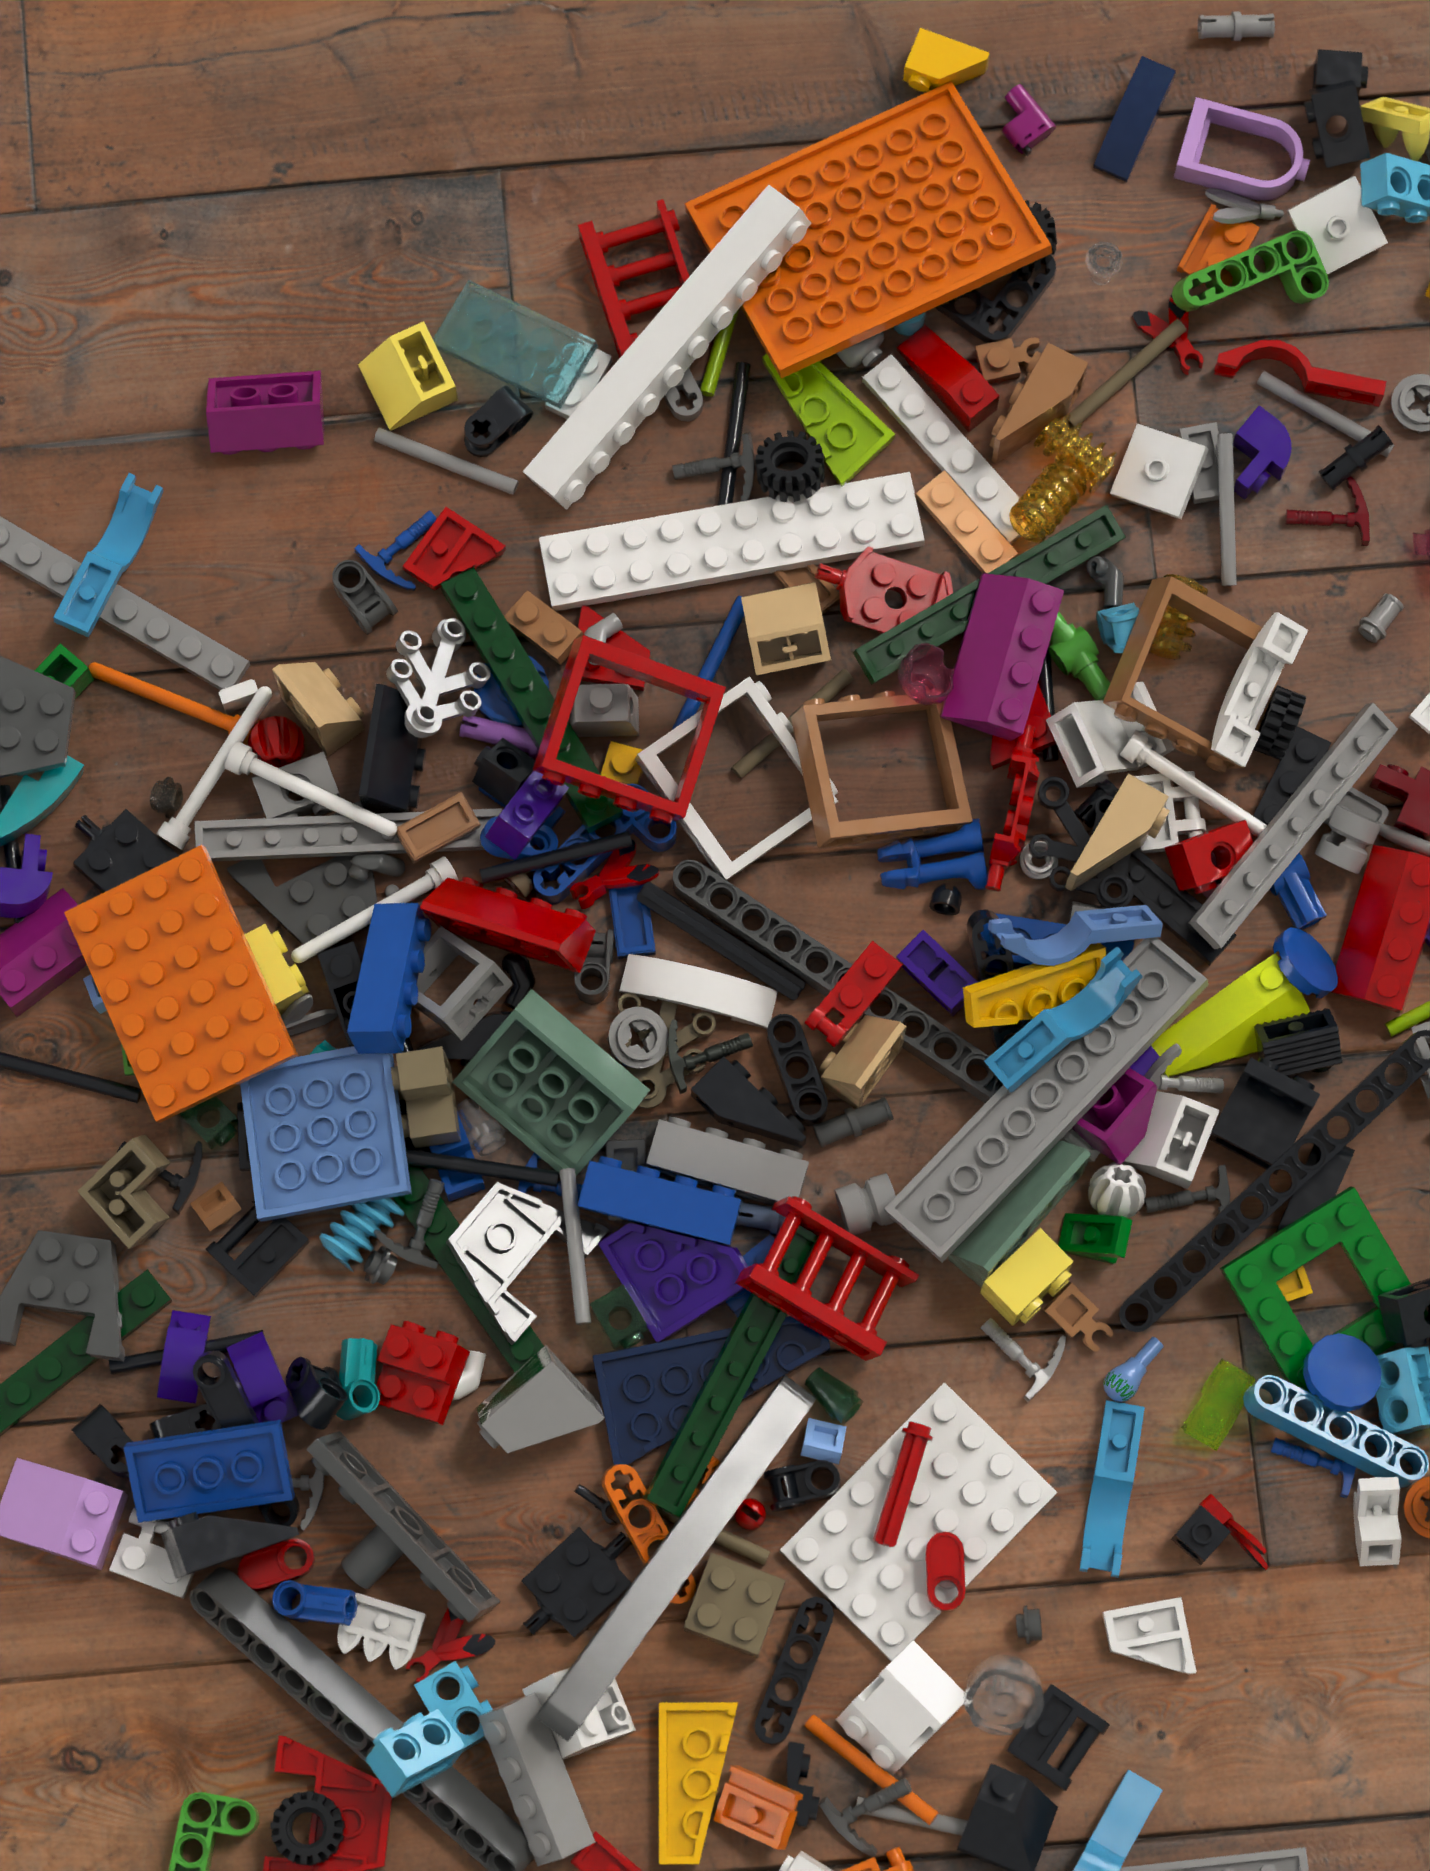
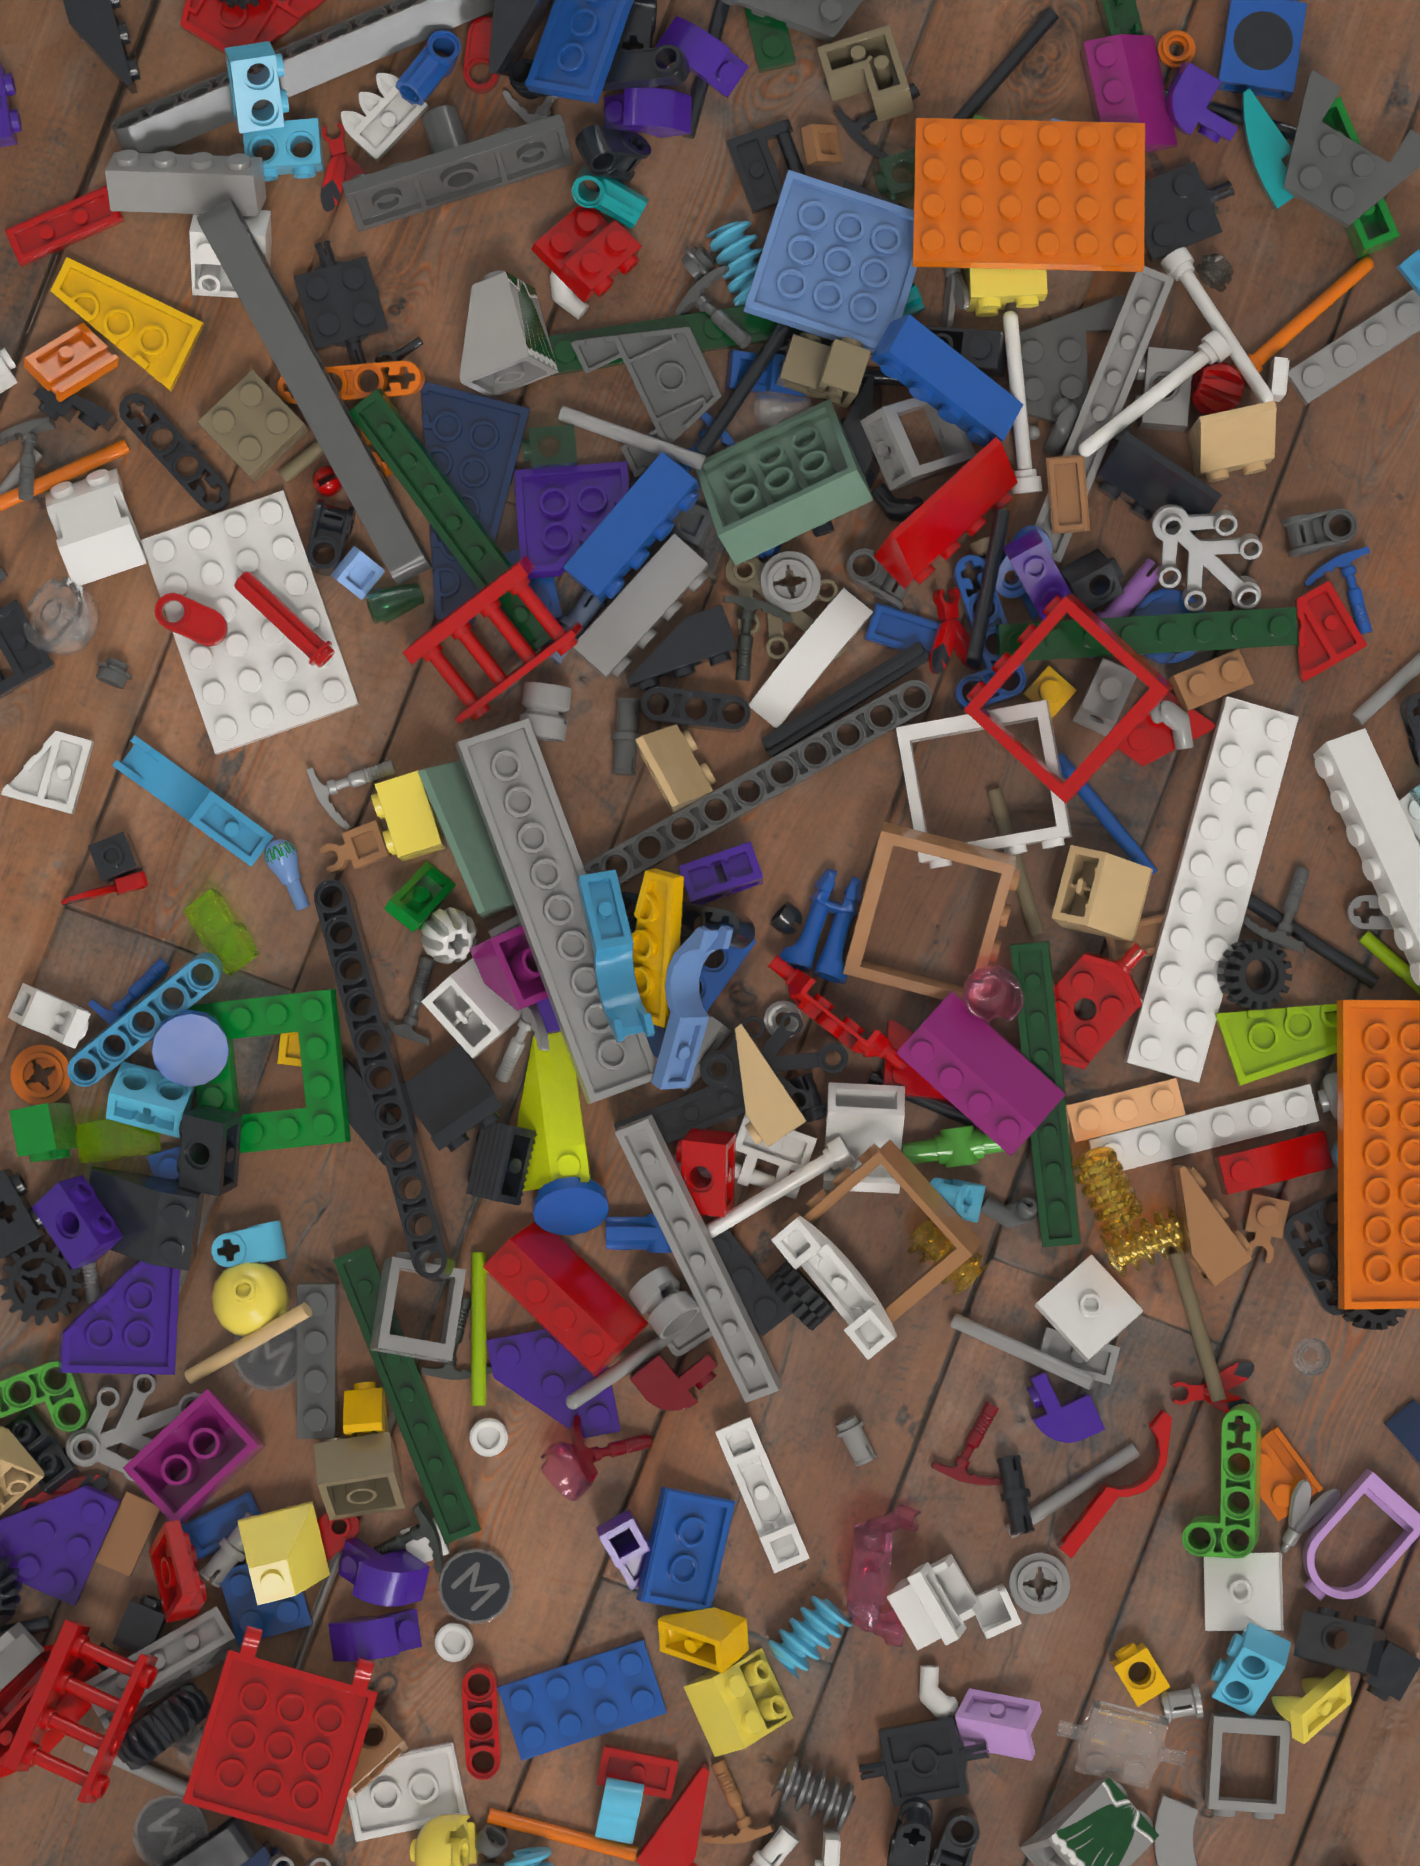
camera: 115 degrees right, 10 degrees up
(854, 993) = (735, 789): red plate -> none

